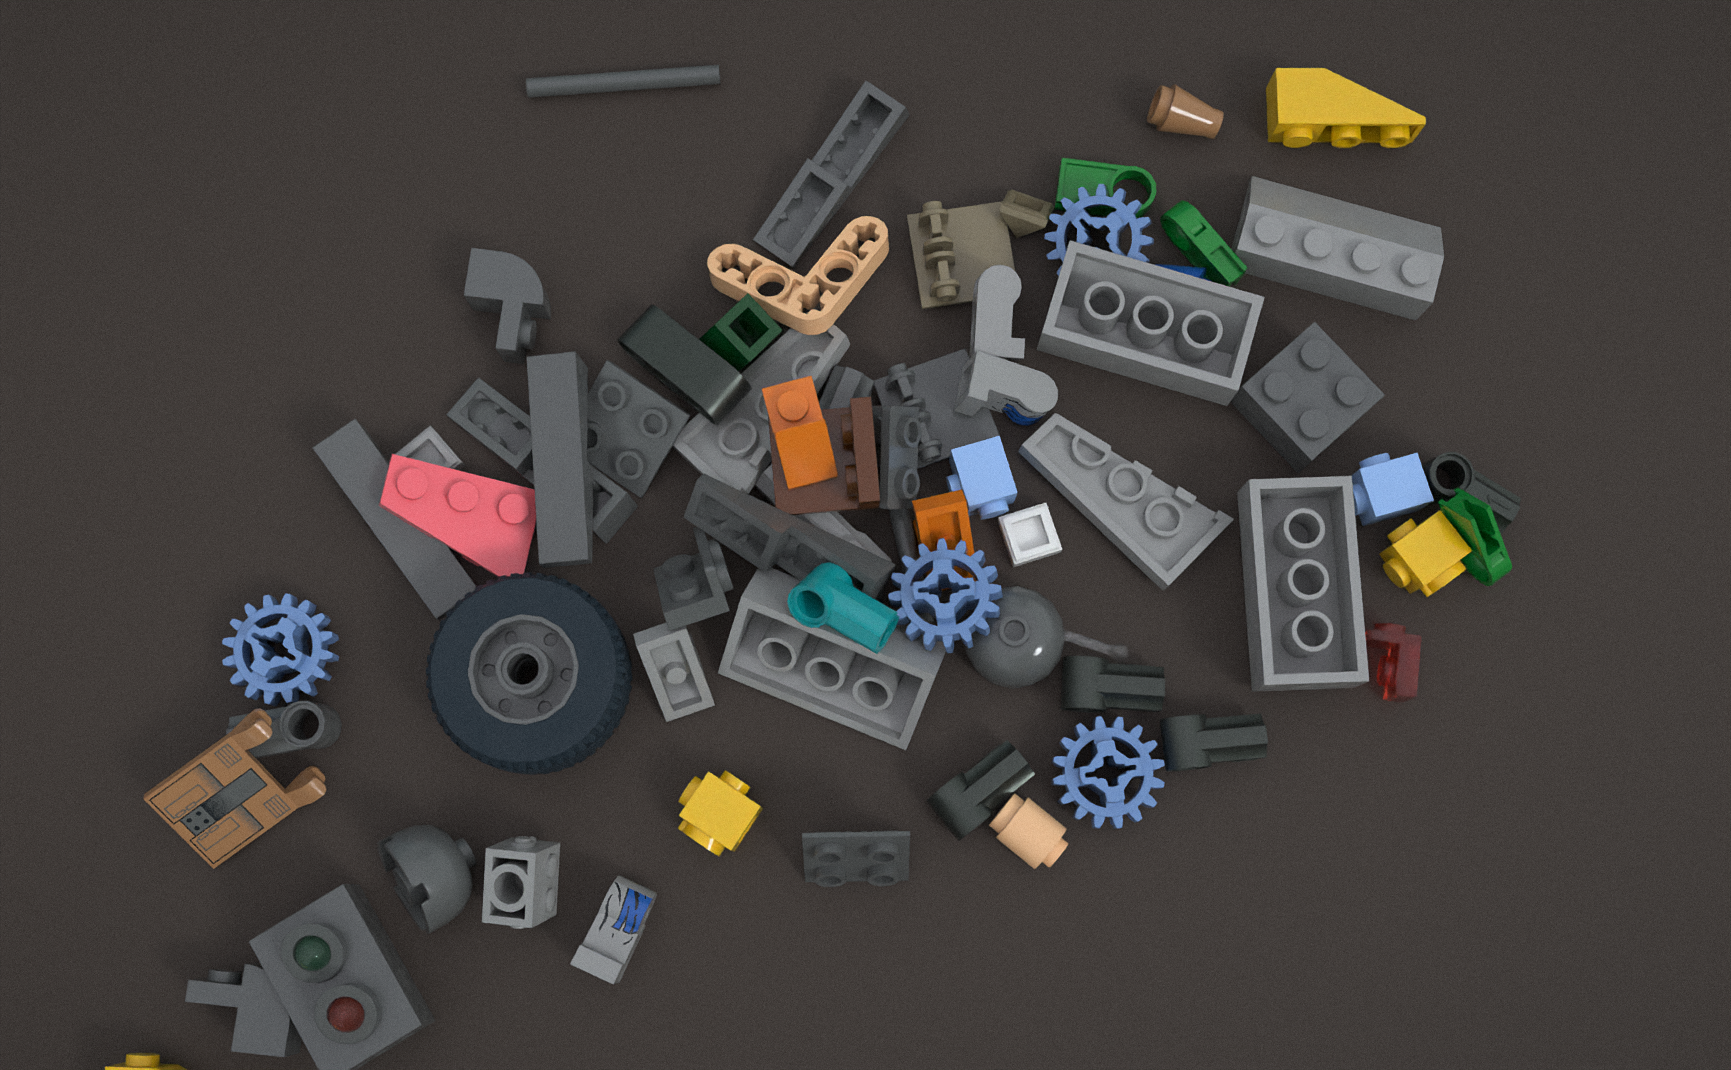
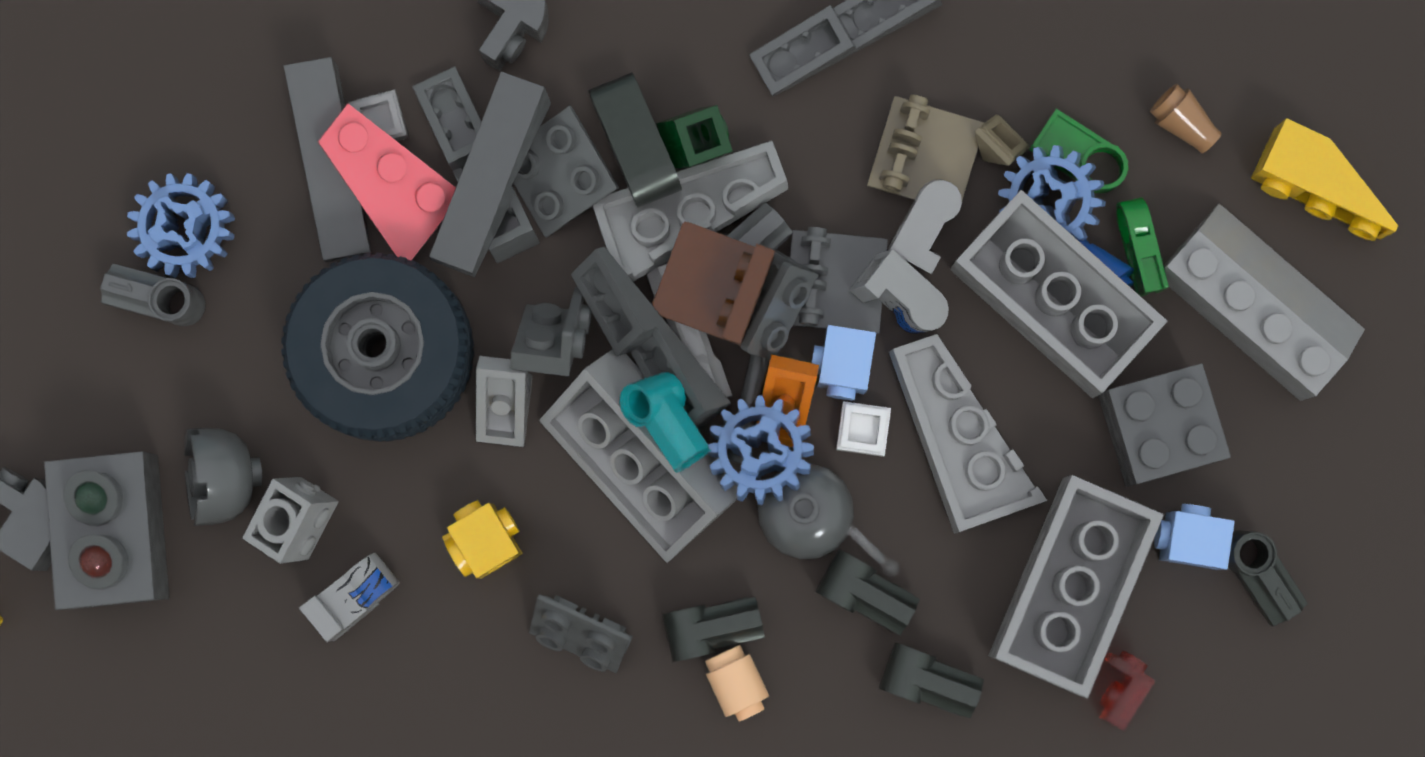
camera: 30 degrees right, 5 degrees up
(228, 795) = (81, 331): medium nougat flag -> none
(800, 432) = (702, 250): orange slope -> none
(802, 291) = (769, 124): light nougat beam -> none
(1104, 748) = (821, 687): medium blue gear -> none
(1424, 554) = (1197, 611): yellow brick -> none
(1480, 531) = (1248, 618): green piece -> none

